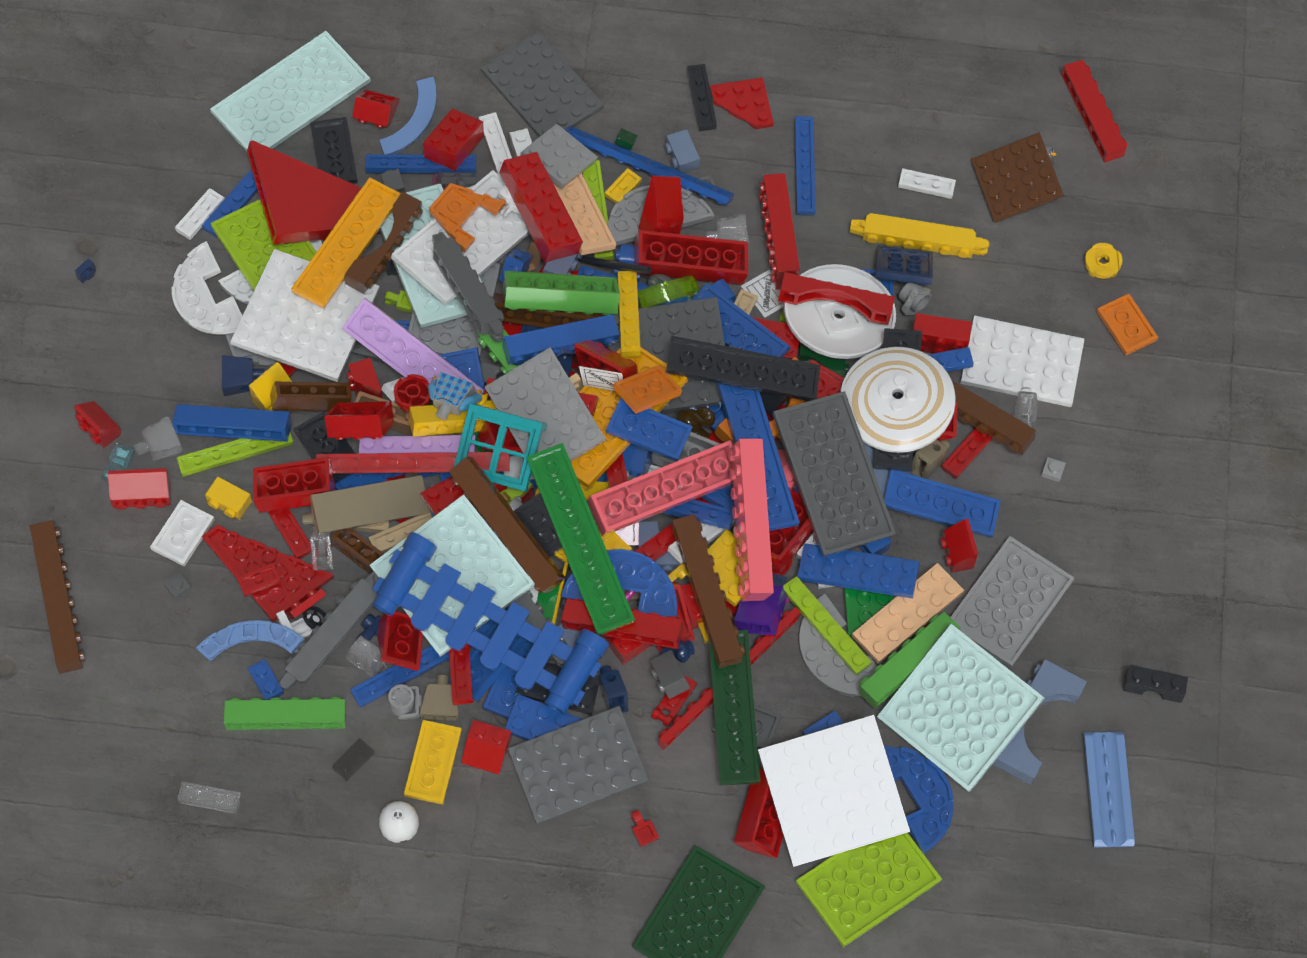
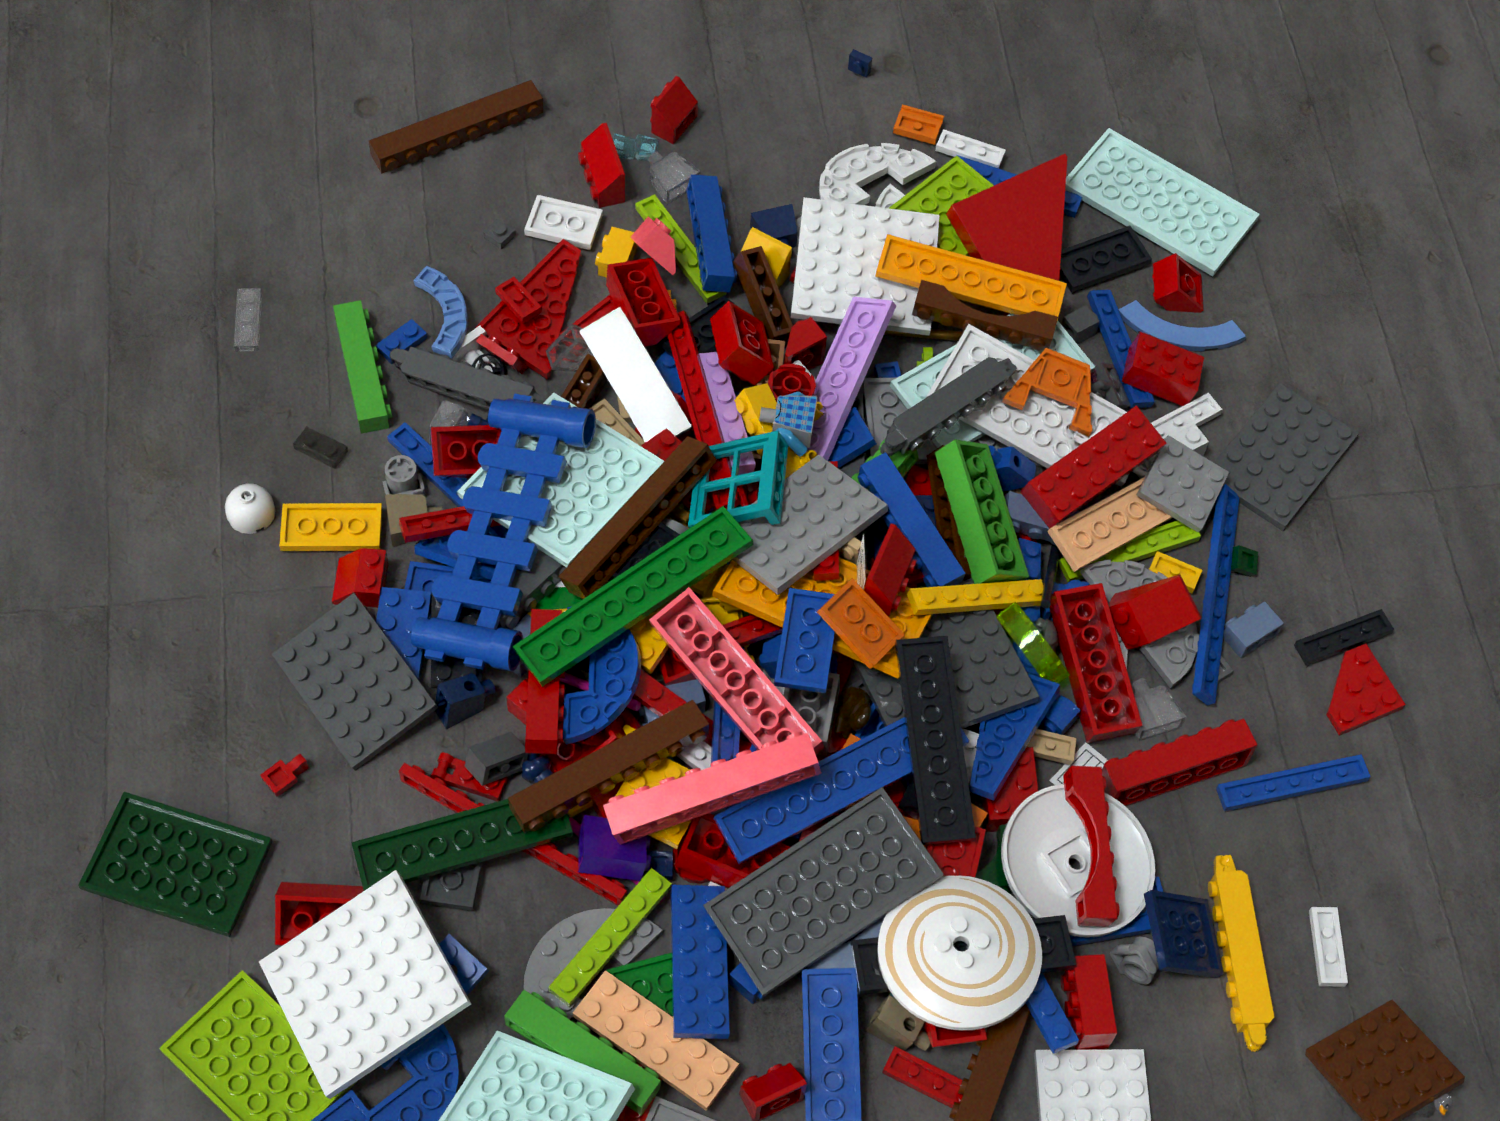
camera: 75 degrees right, 5 degrees down
(162, 244) = (918, 124): none -> orange plate
(239, 461) = (656, 242): none -> coral slope

